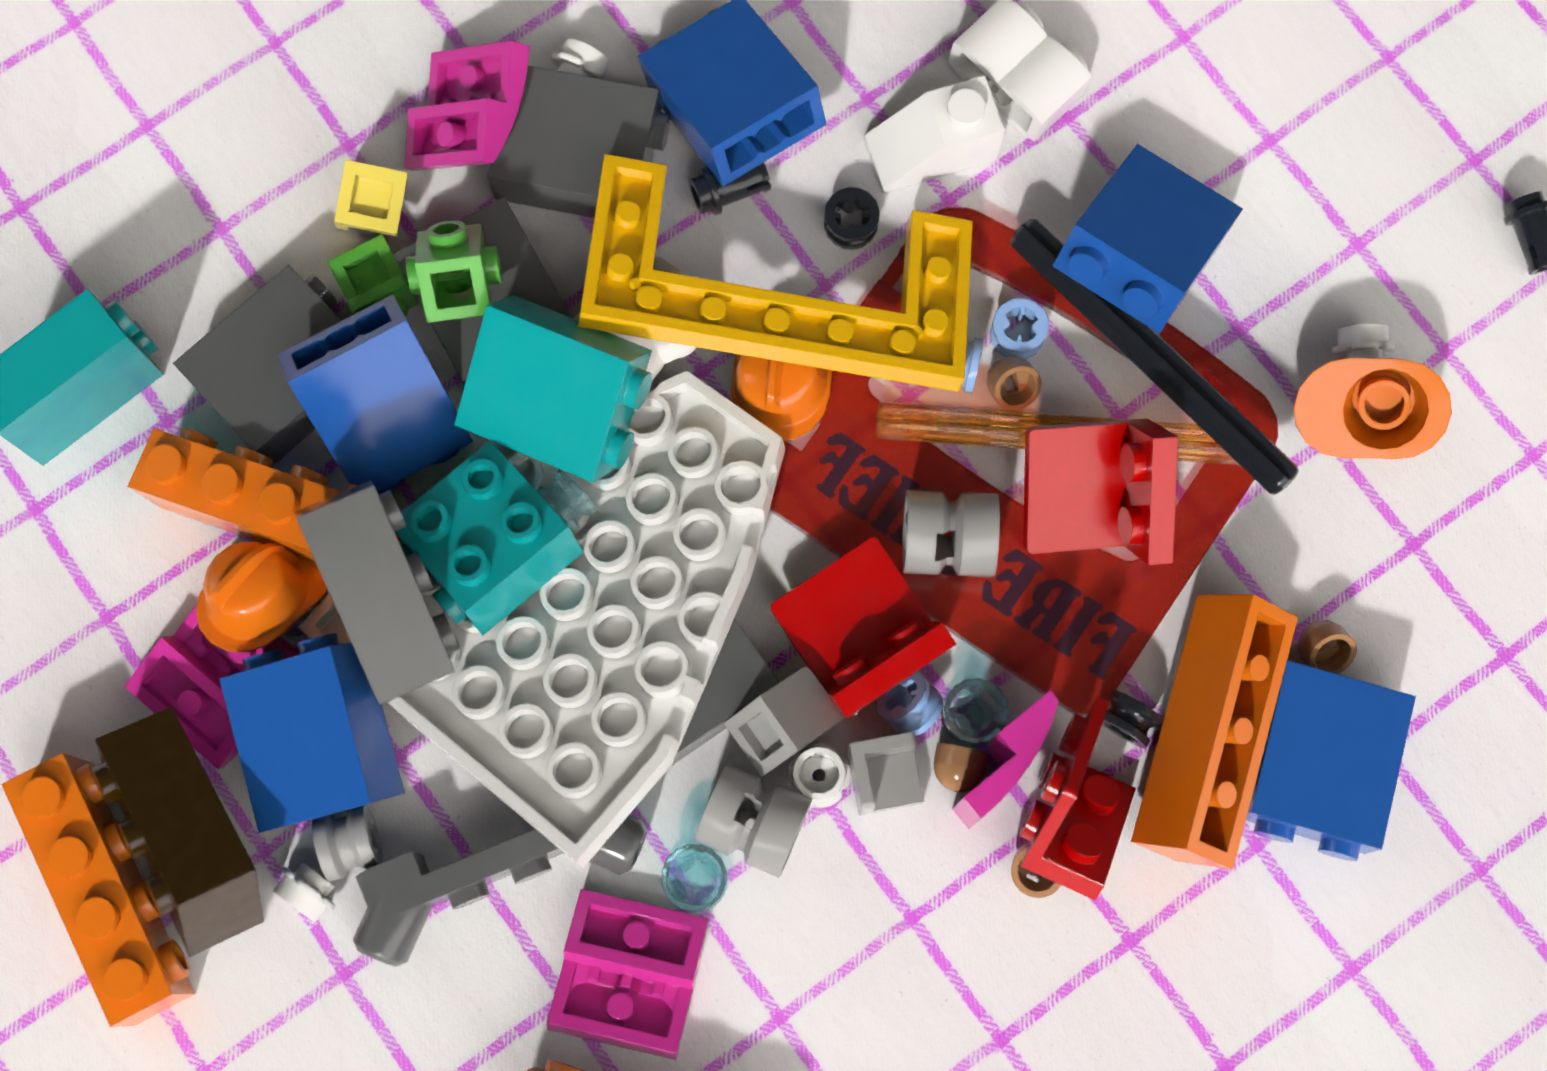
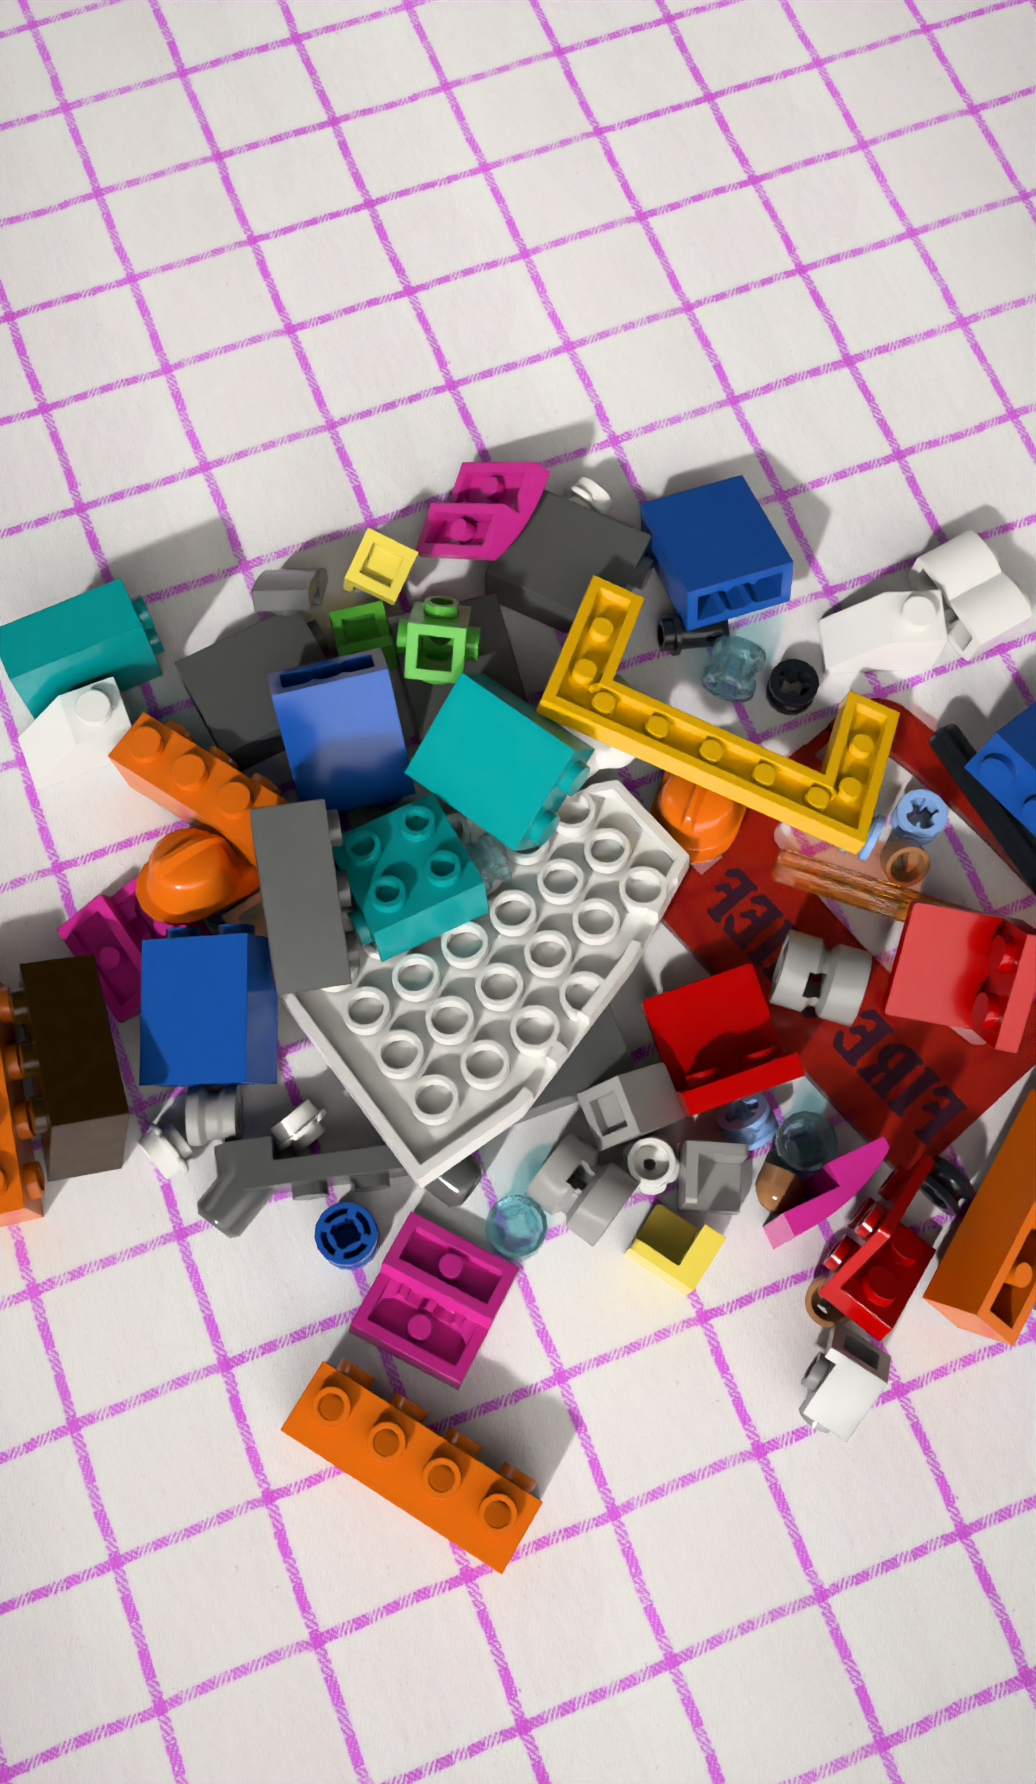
camera: 10 degrees right, 5 degrees down
(86, 466) = (75, 733): none -> white slope
(277, 250) = (289, 590): none -> dark grey slope
(440, 830) = (299, 1126): none -> white plate
(532, 934) = (356, 1241): none -> blue wheel
(783, 215) = (733, 668): none -> clear light blue wheel
(865, 856) = (675, 1248): none -> light yellow panel
(1069, 950) = (843, 1382): none -> brick

